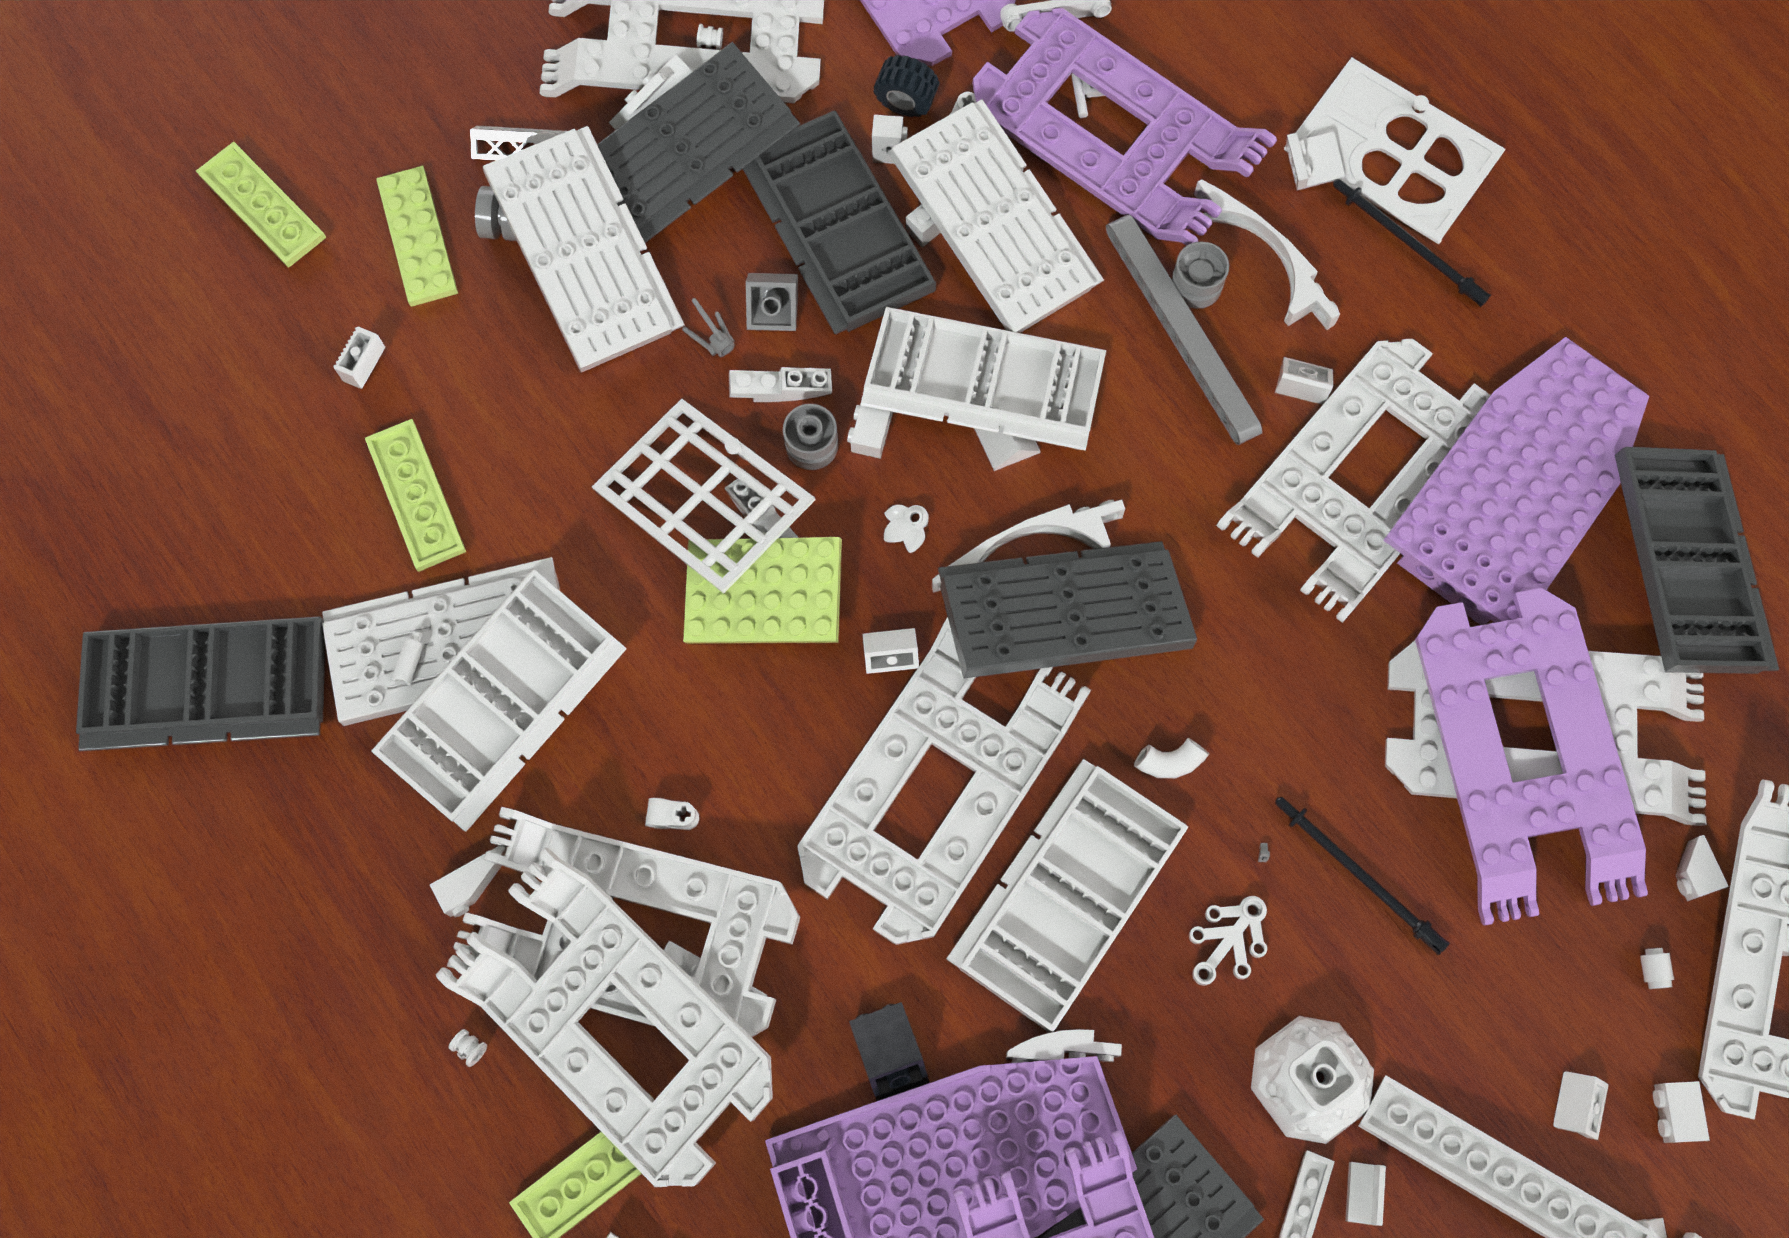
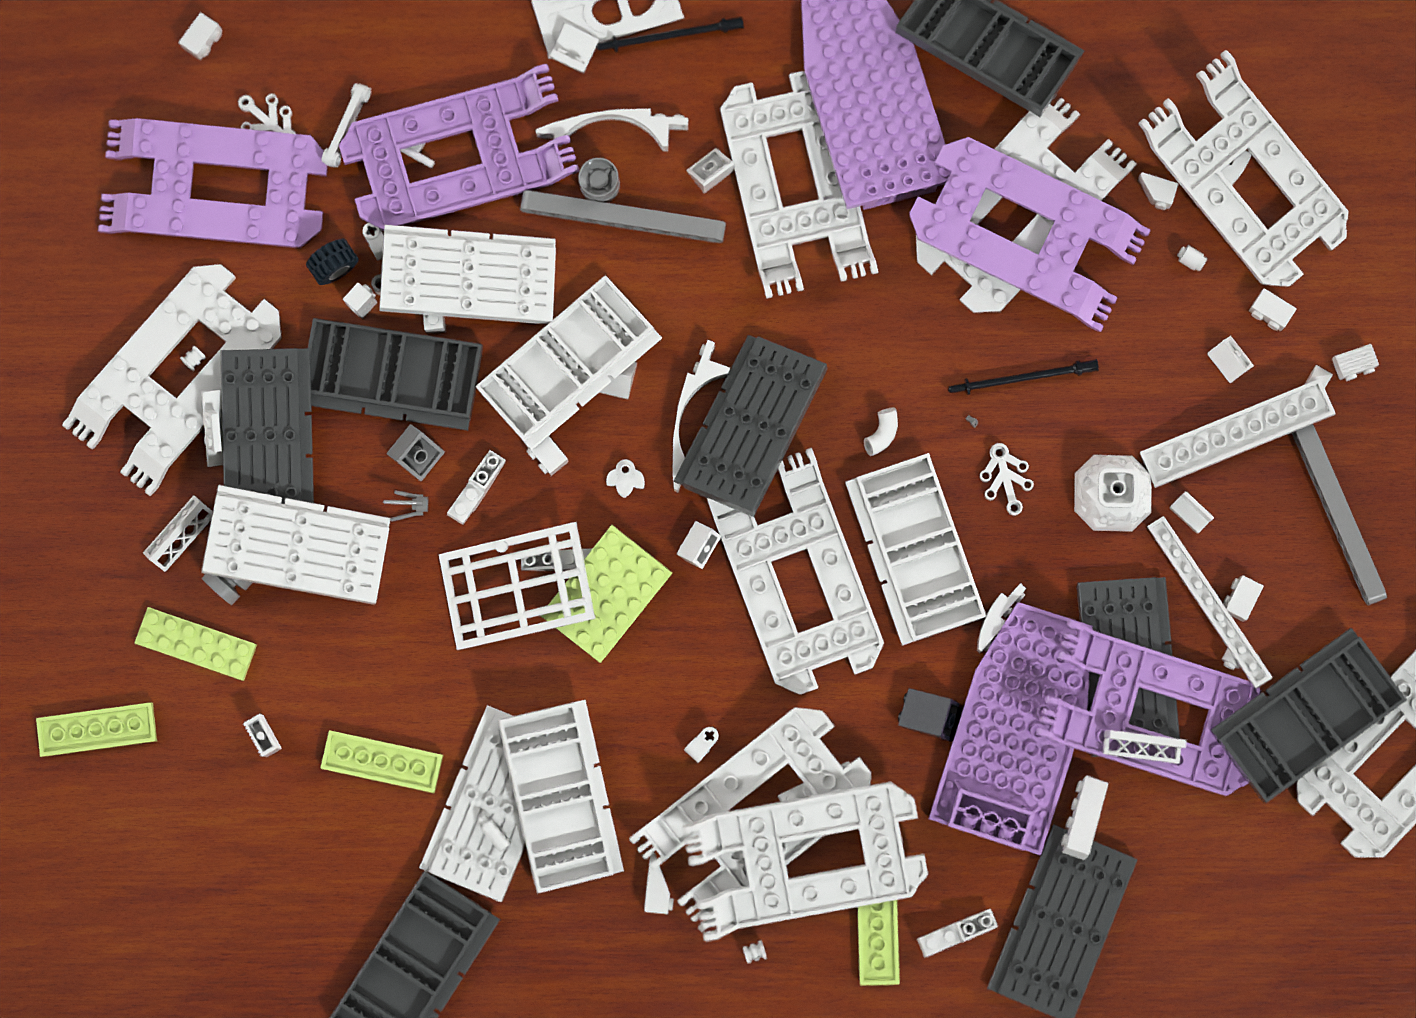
camera: 50 degrees left, 10 degrees up
(810, 436) = (527, 494): light grey wheel -> none

